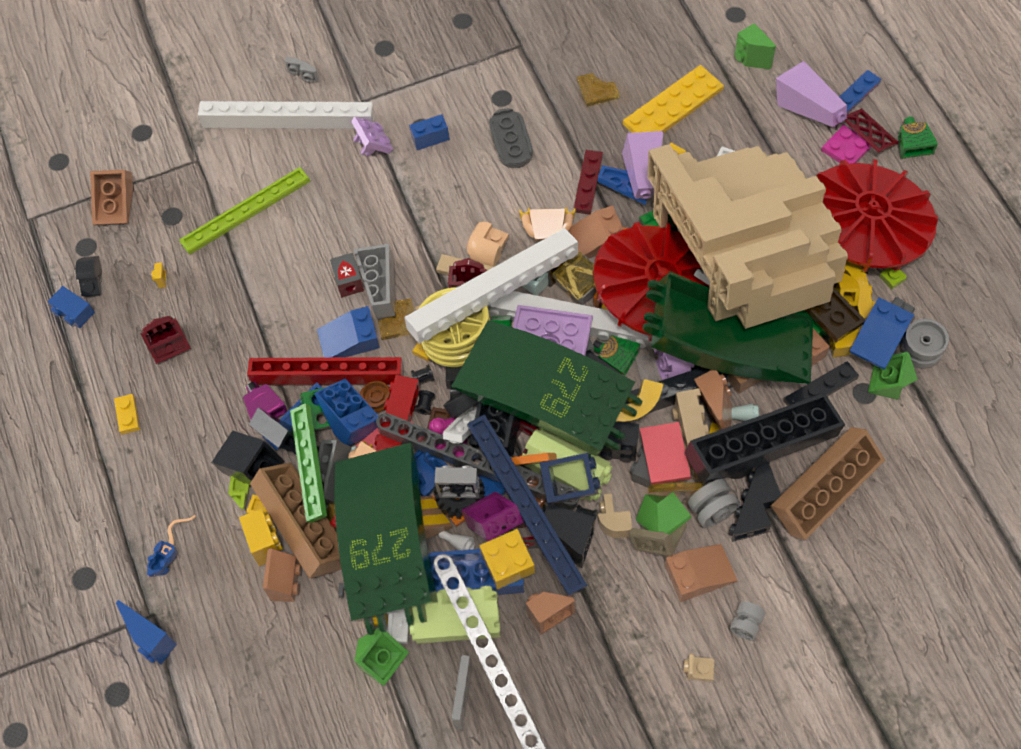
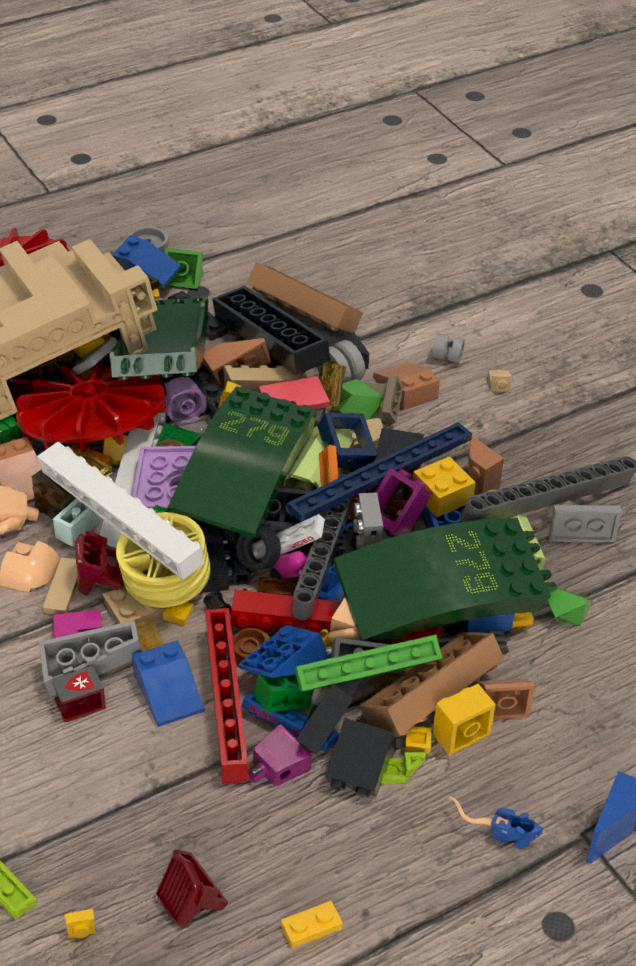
camera: 105 degrees left, 20 degrees down
(419, 272) = (76, 622): none -> dark pink tile

